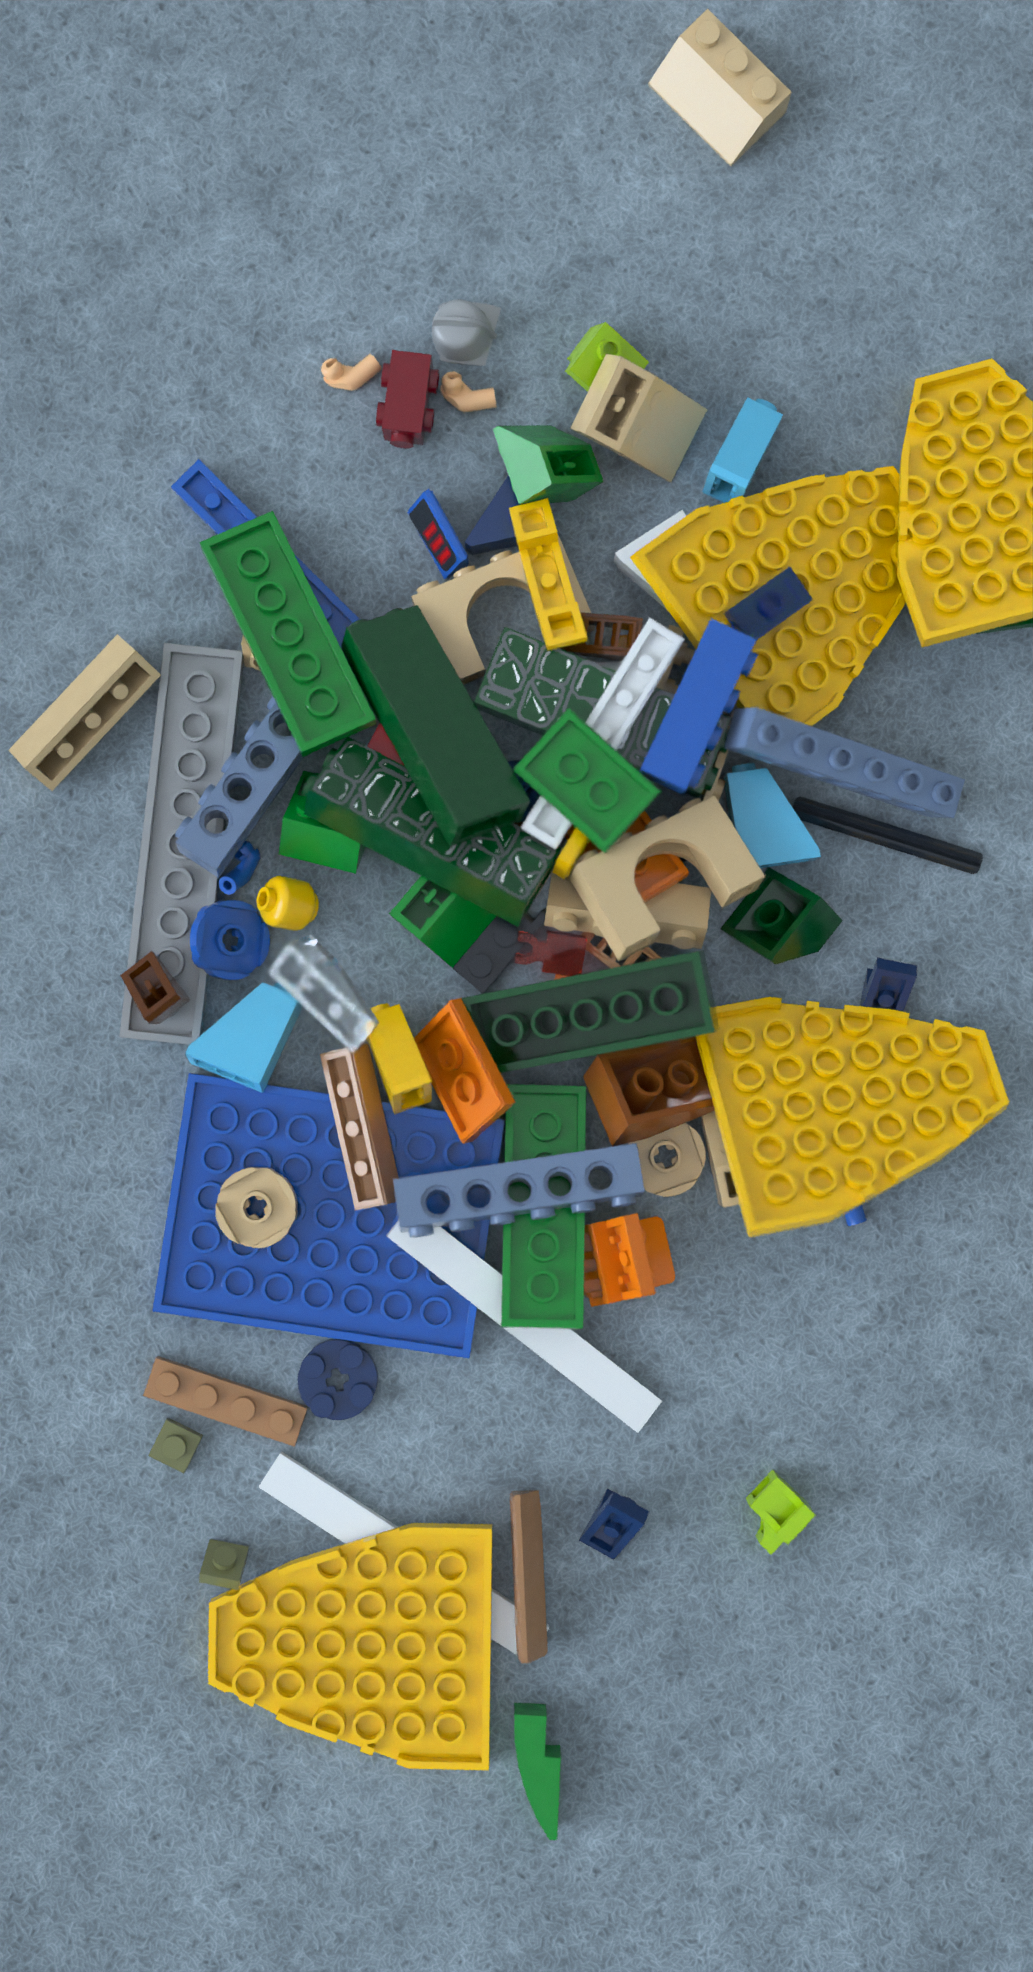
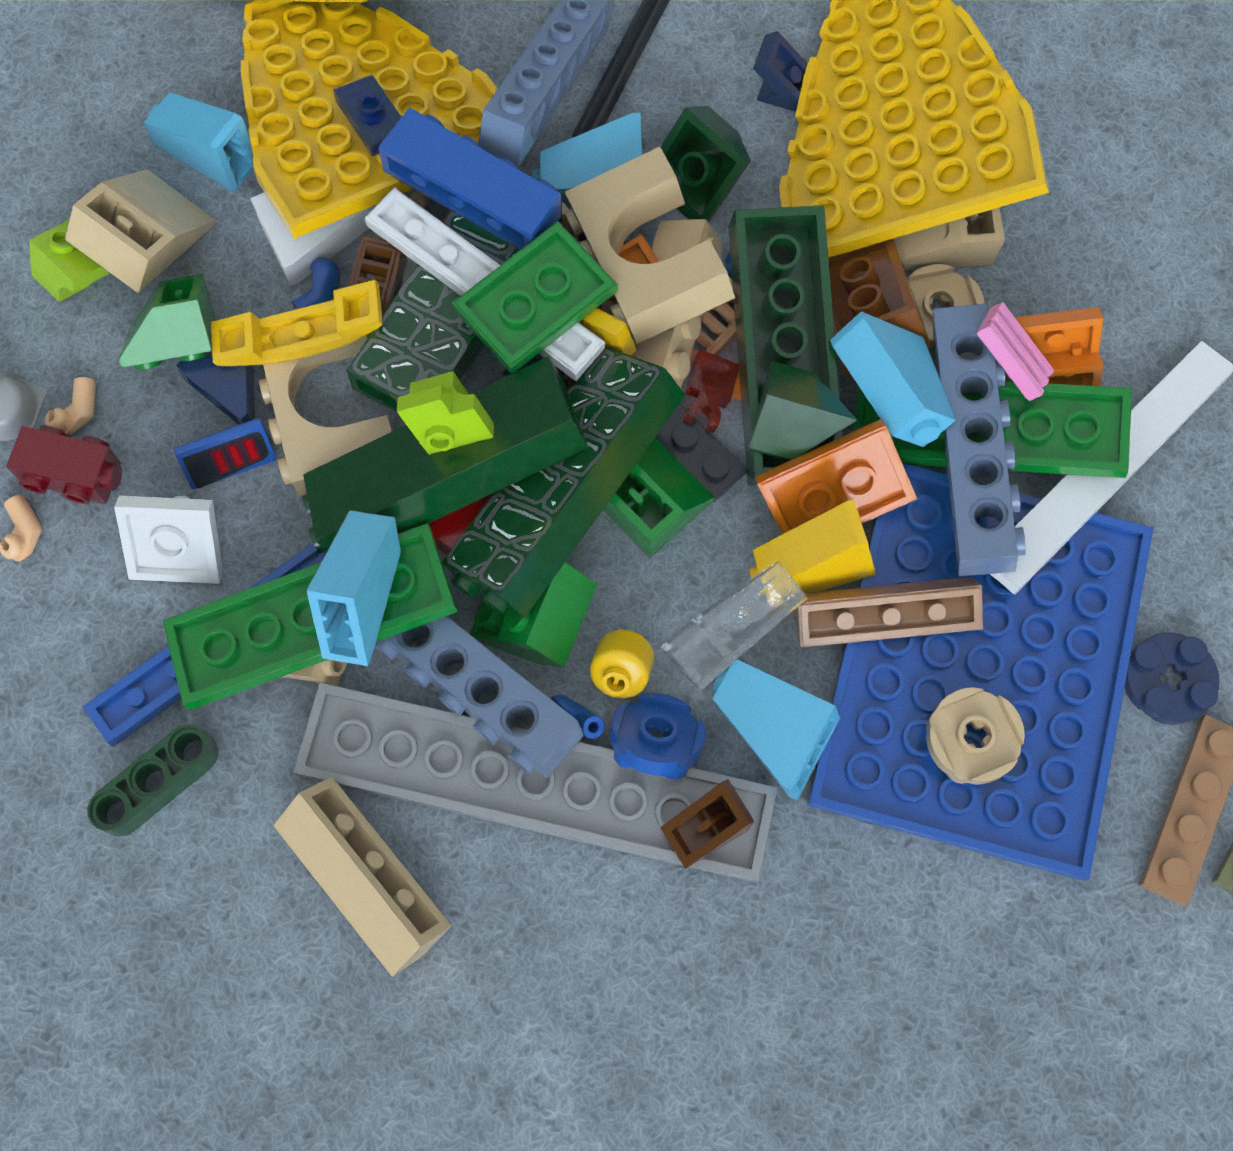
camera: 90 degrees left, 15 degrees down
(134, 515) = (131, 786): none -> dark green beam
(304, 666) = (354, 587): none -> medium azure slope
(350, 503) = (169, 539): none -> white tile
(460, 716) = (444, 414): none -> lime brick
(517, 1026) = (795, 413): none -> dark green slope
(560, 1113) = (895, 377): none -> medium azure slope
(606, 1220) = (1015, 351): none -> bright pink tile
(611, 592) = (324, 281): none -> blue arm

